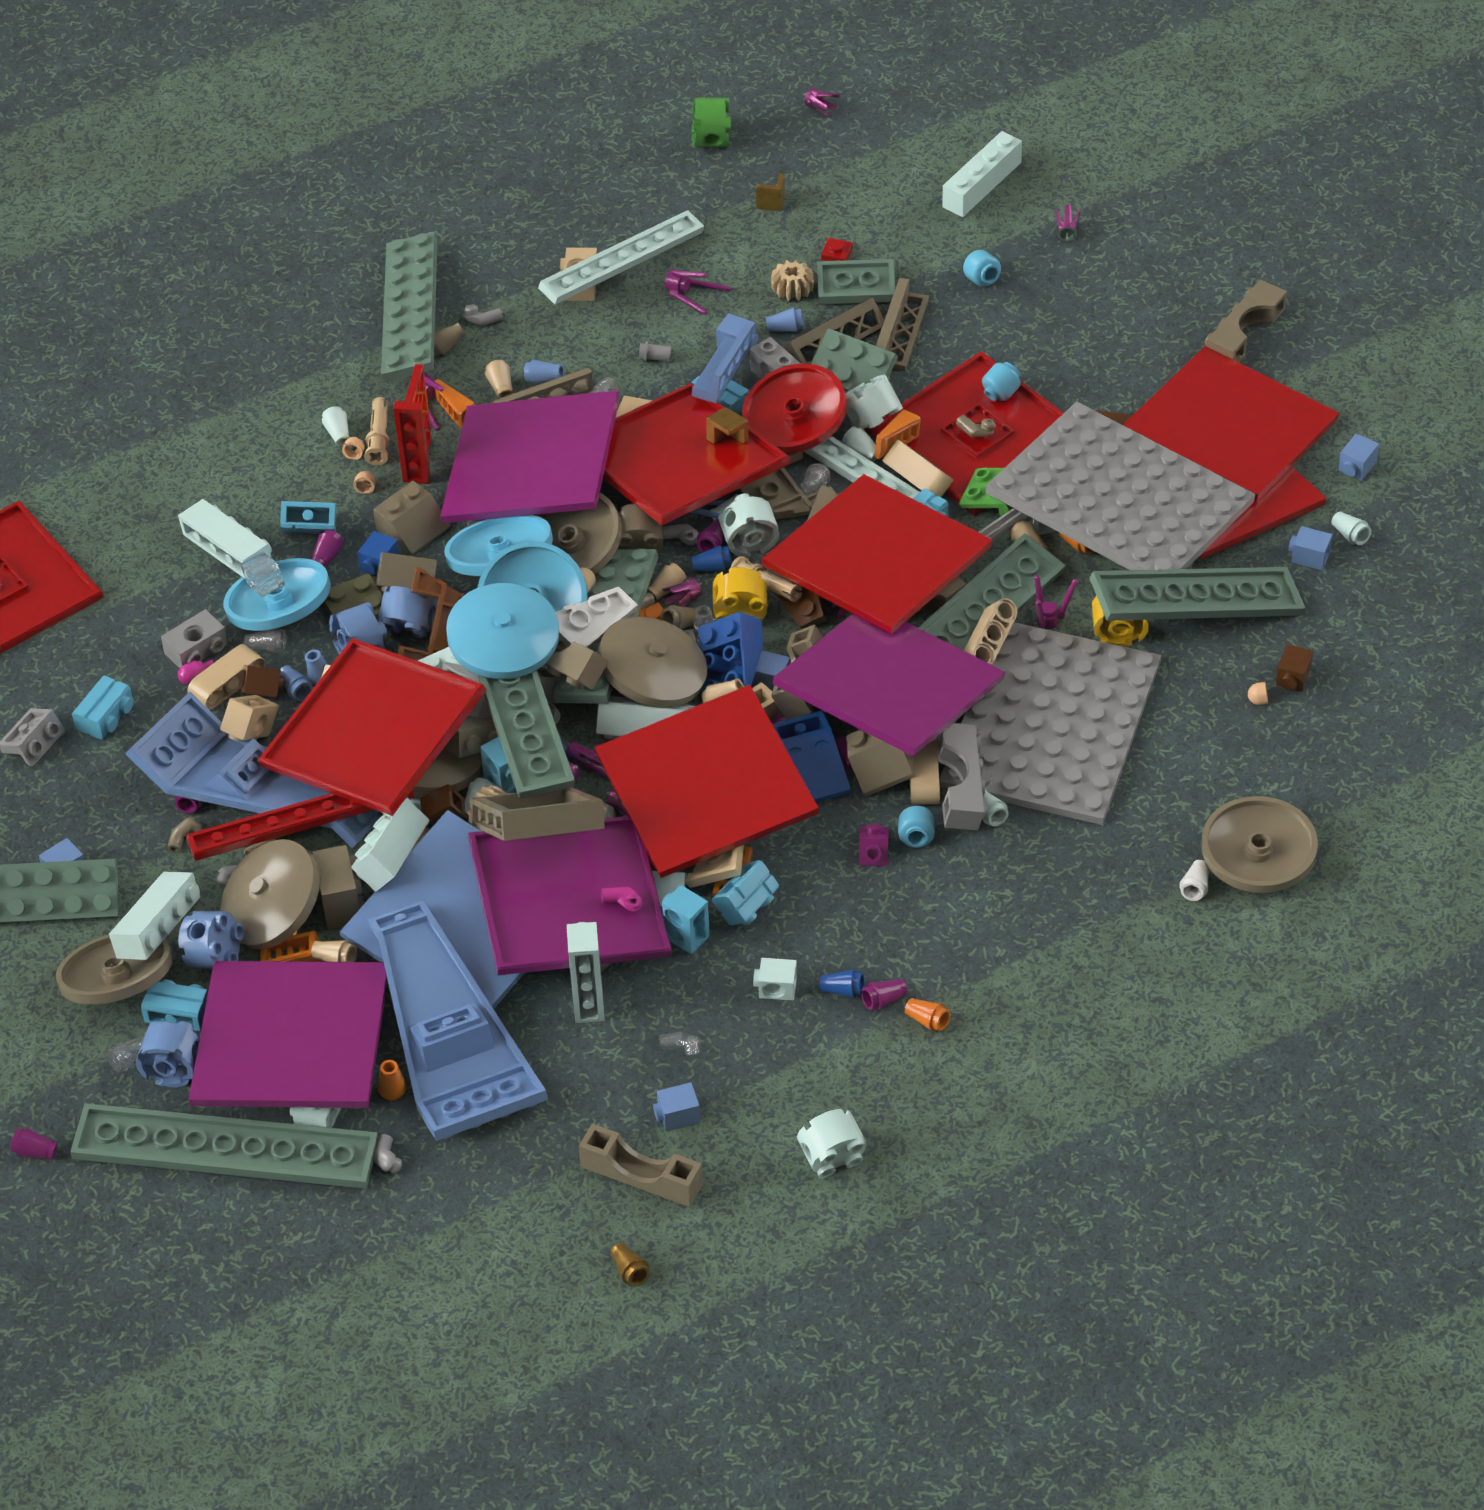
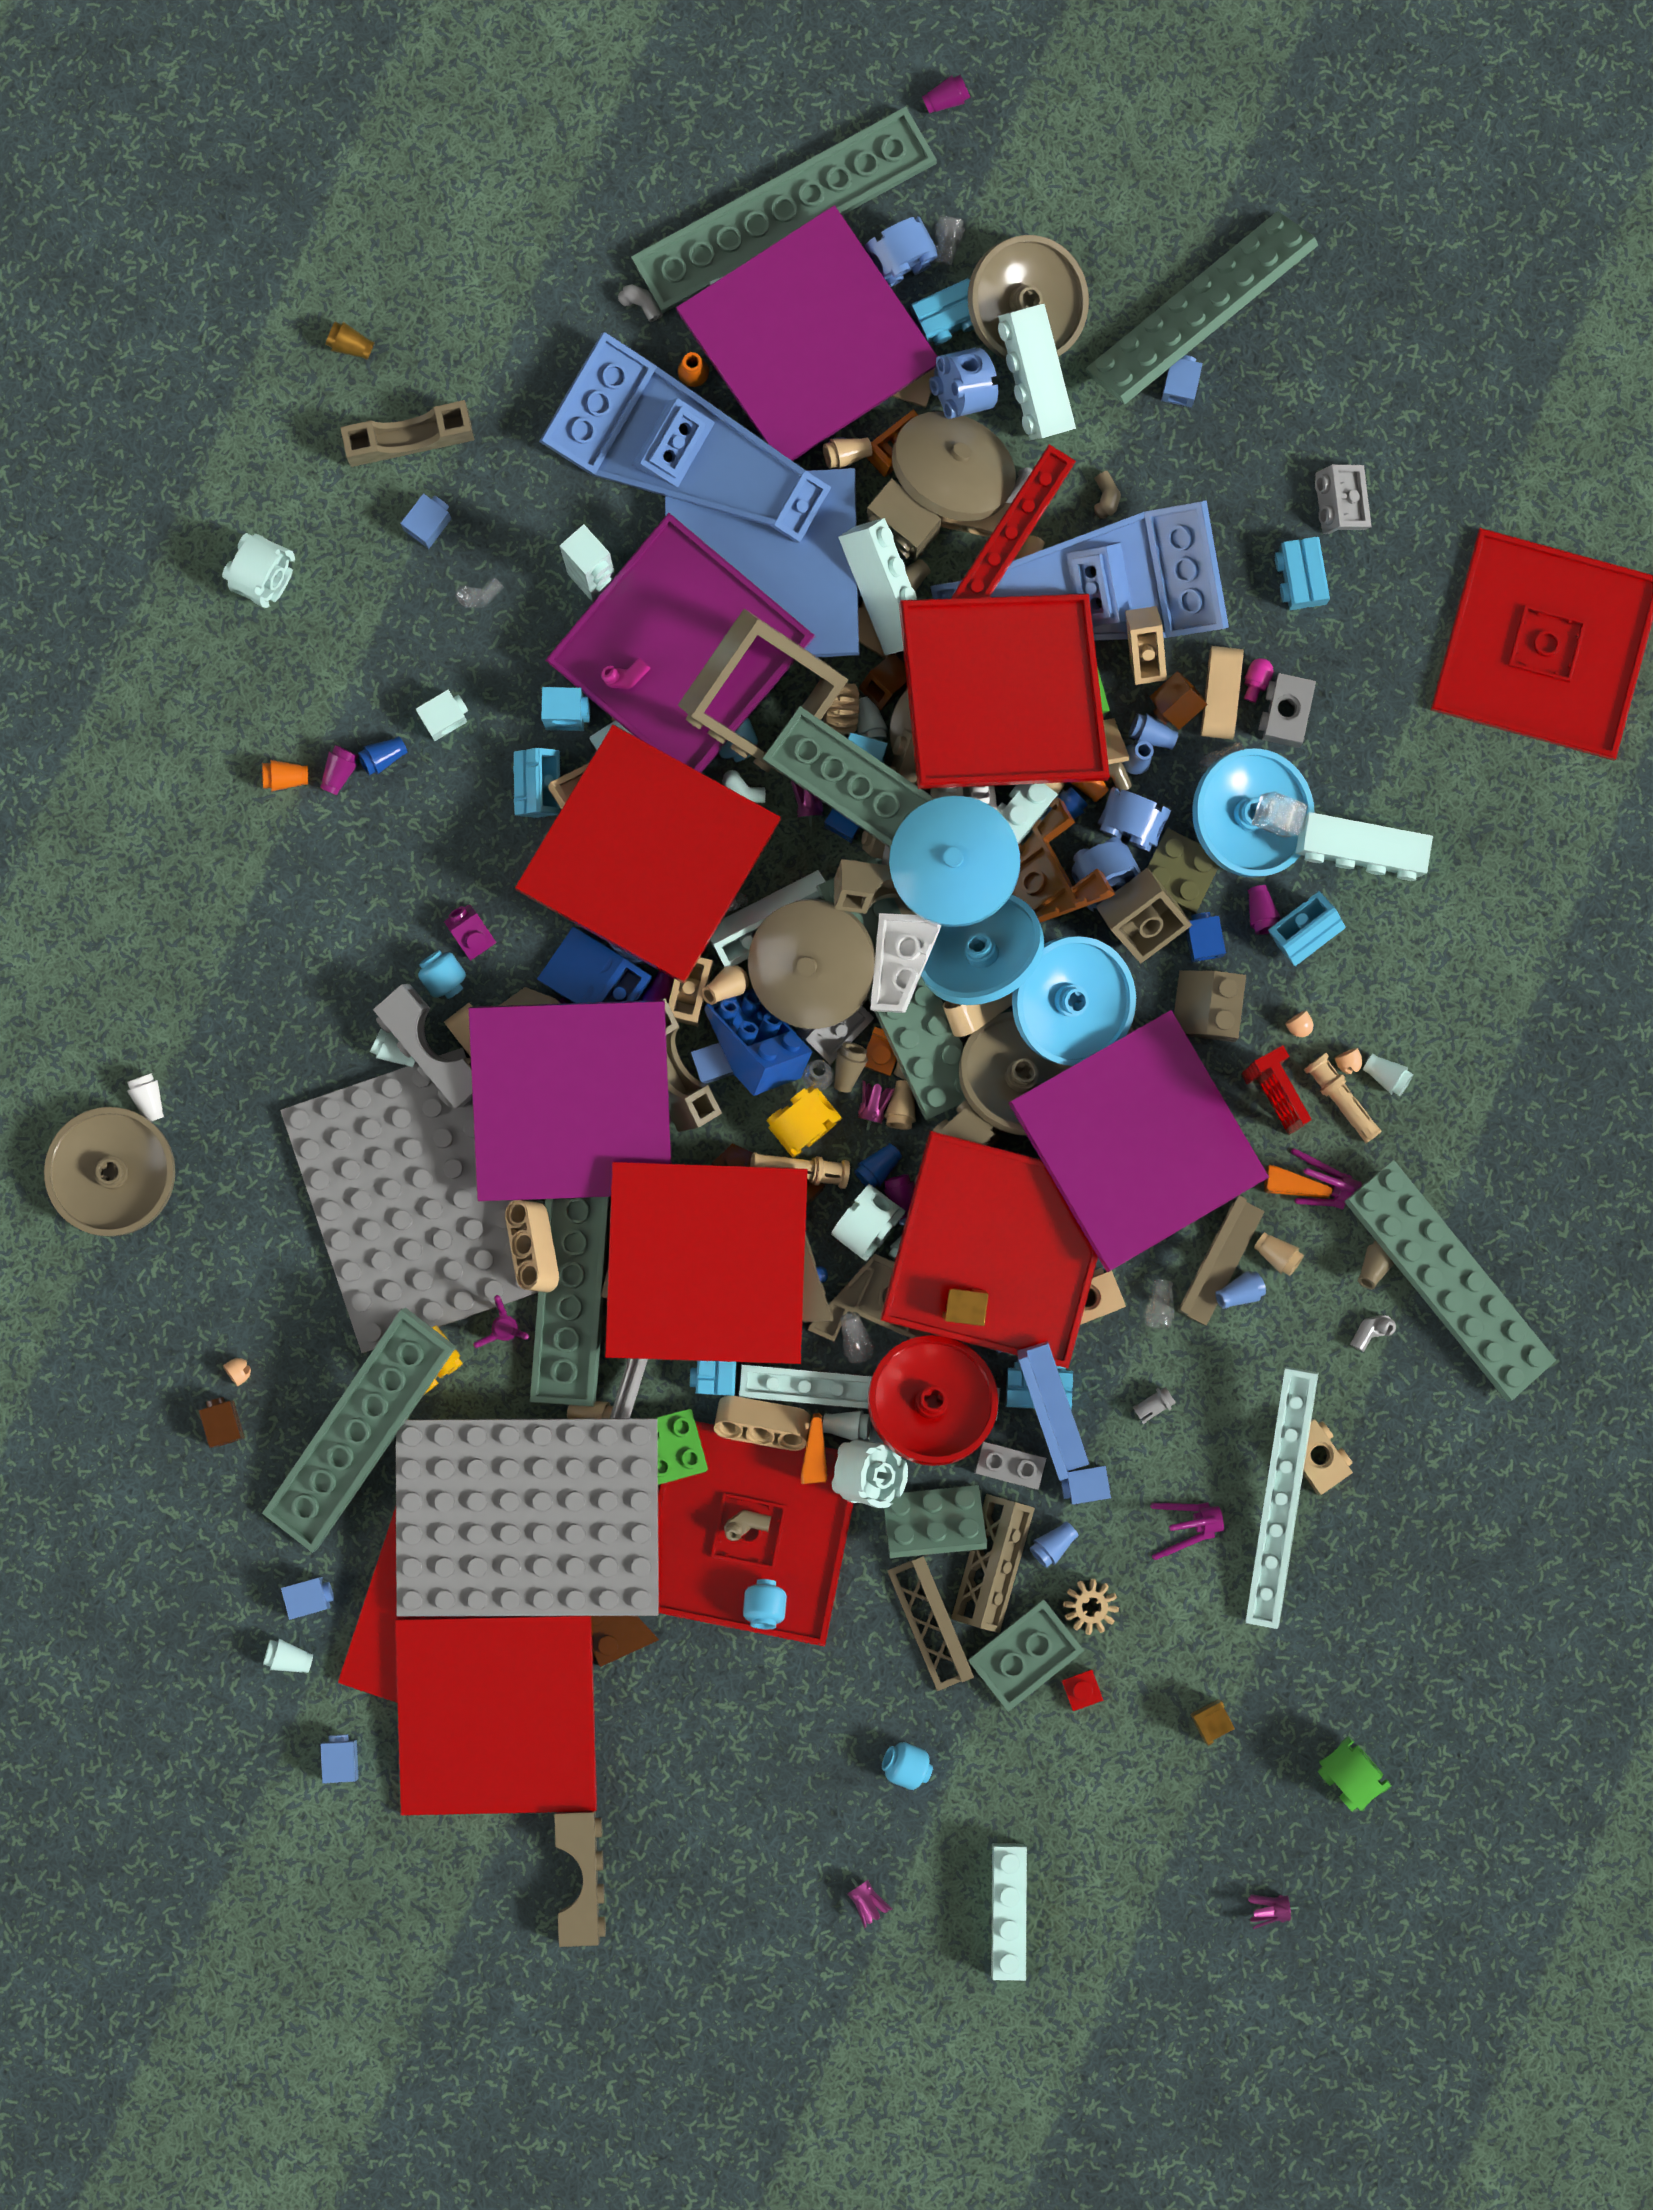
camera: 140 degrees right, 35 degrees up
(579, 753) = (800, 843): magenta pin -> none

